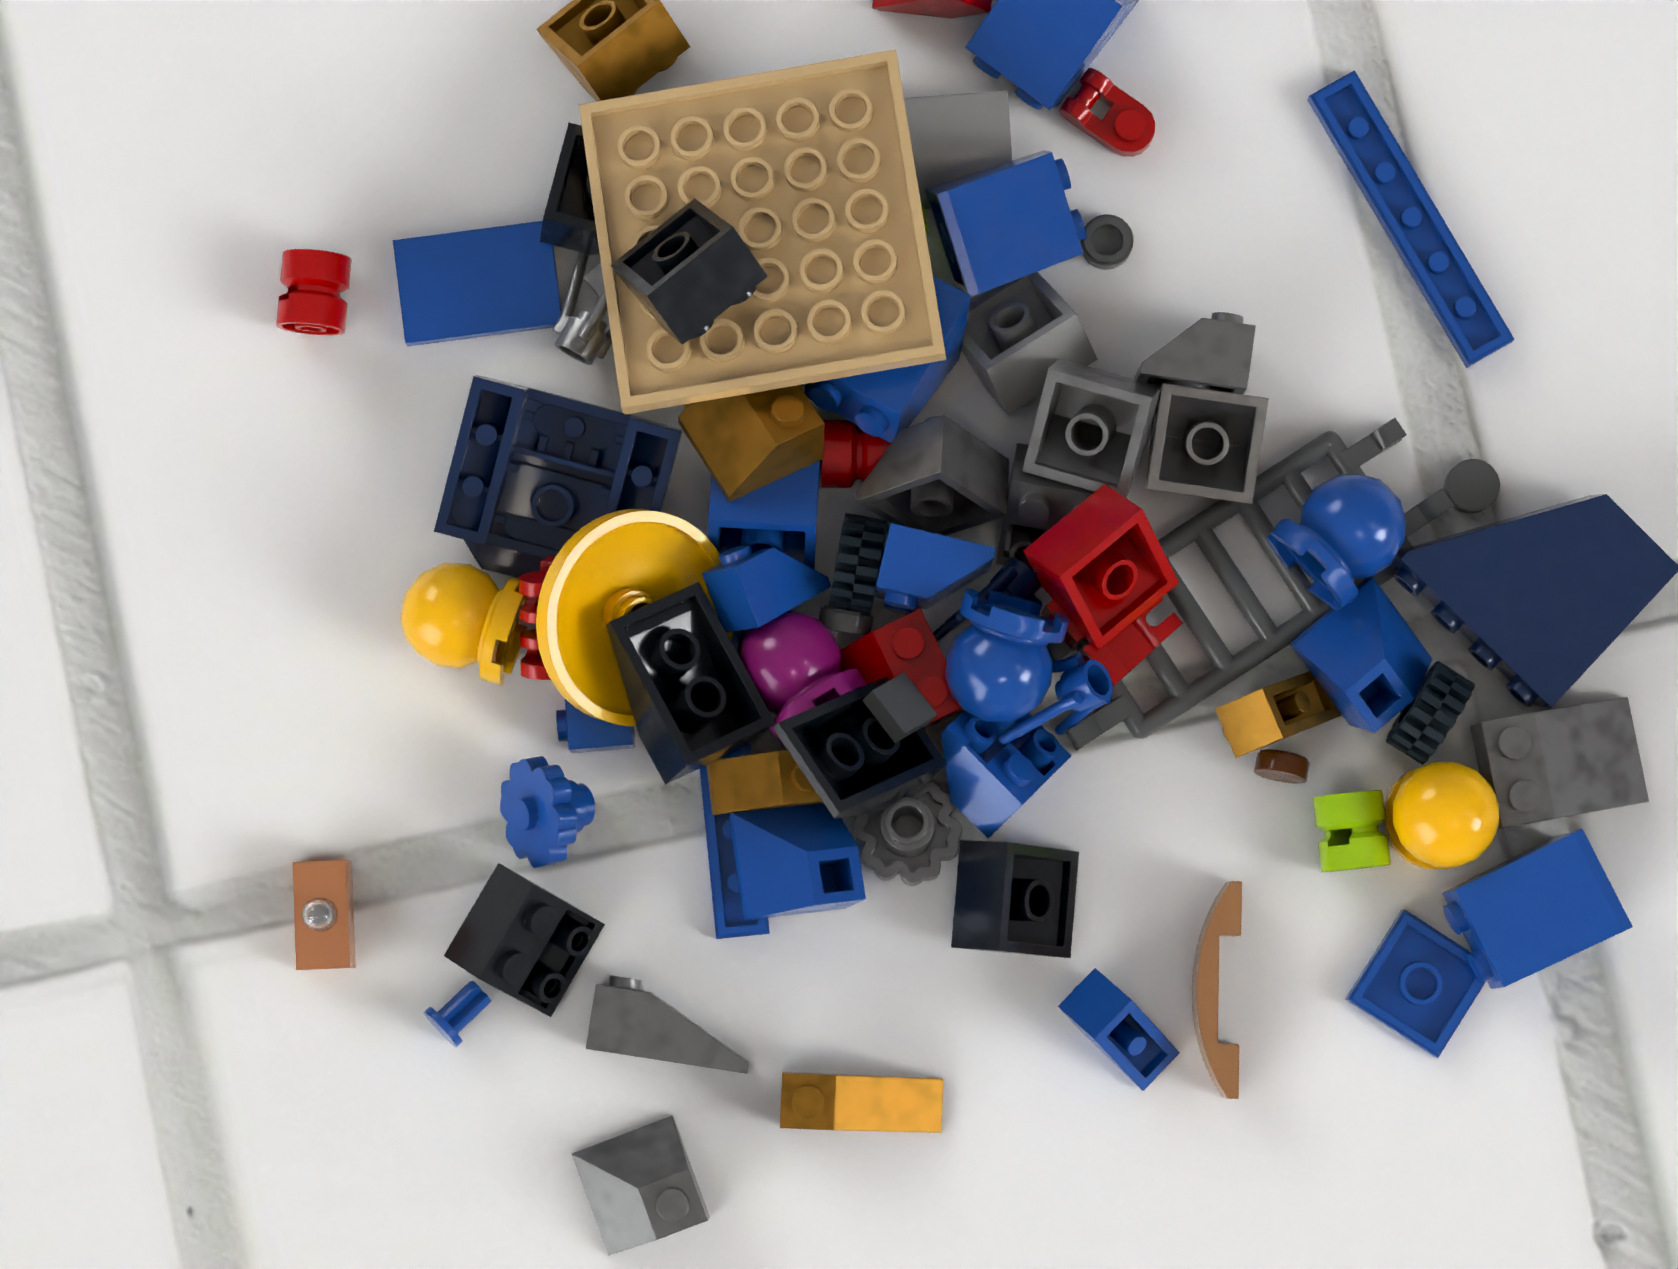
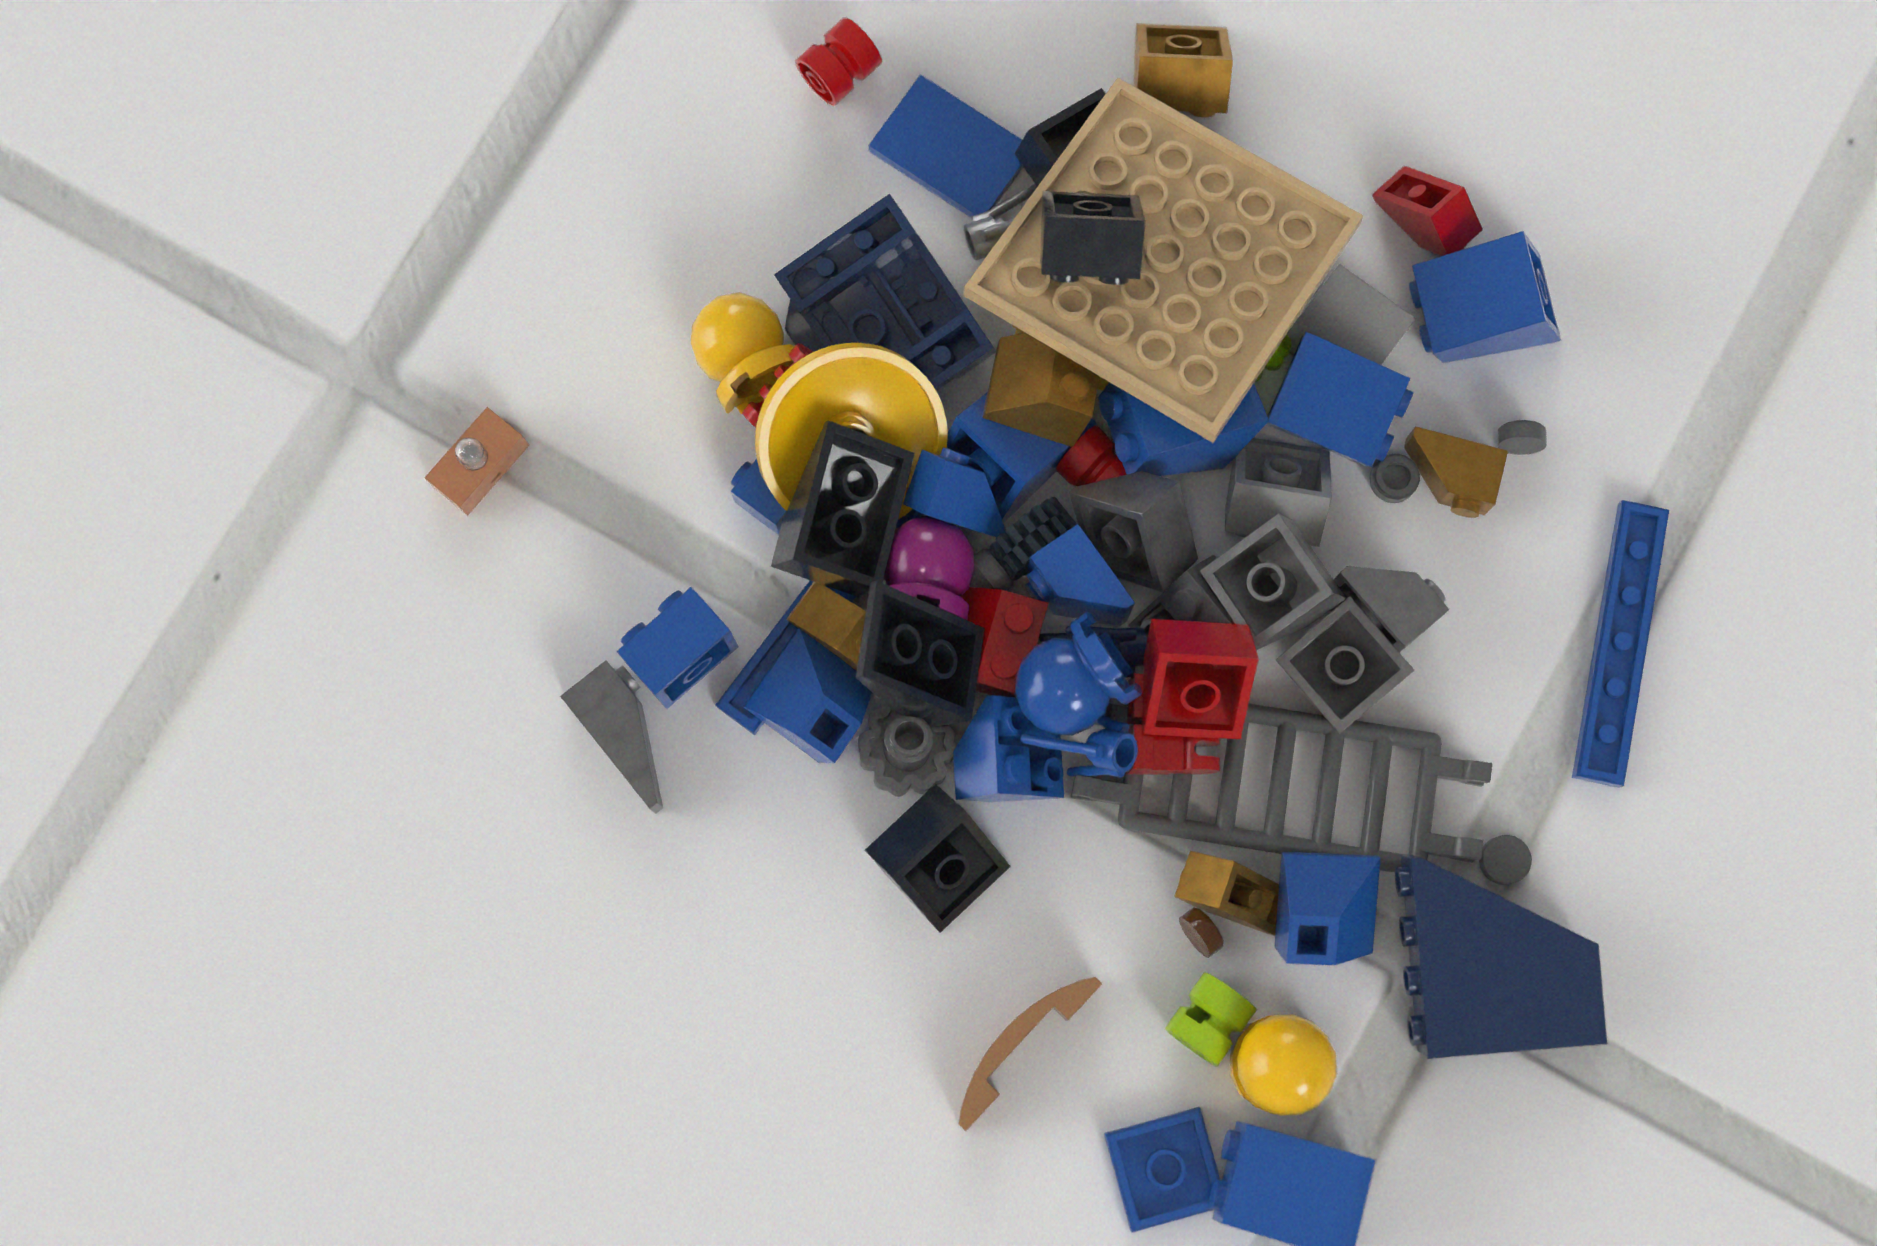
camera: 45 degrees right, 5 degrees down
(458, 1012) = (504, 601): blue piece -> none
(524, 940) = (587, 591): black slope -> none
(543, 811) = (679, 518): blue plant -> none
(641, 1186) = (516, 824): flat silver slope -> none
(645, 919) = (677, 646): none -> blue brick
(861, 1102) = (709, 900): slope -> none
(899, 707) = (972, 653): dark grey tile -> none
(1119, 1029) = (928, 1010): blue slope -> none
(1126, 126) = (1473, 414): red plate -> none
(1155, 191) = (1457, 470): none -> pearl gold slope
(1182, 114) = (1522, 437): none -> dark grey tile
(1344, 533) = (1387, 806): blue tile -> none
(1431, 714) = (1338, 986): black bush -> none
(1561, 761) = (1401, 1104): flat silver slope -> none

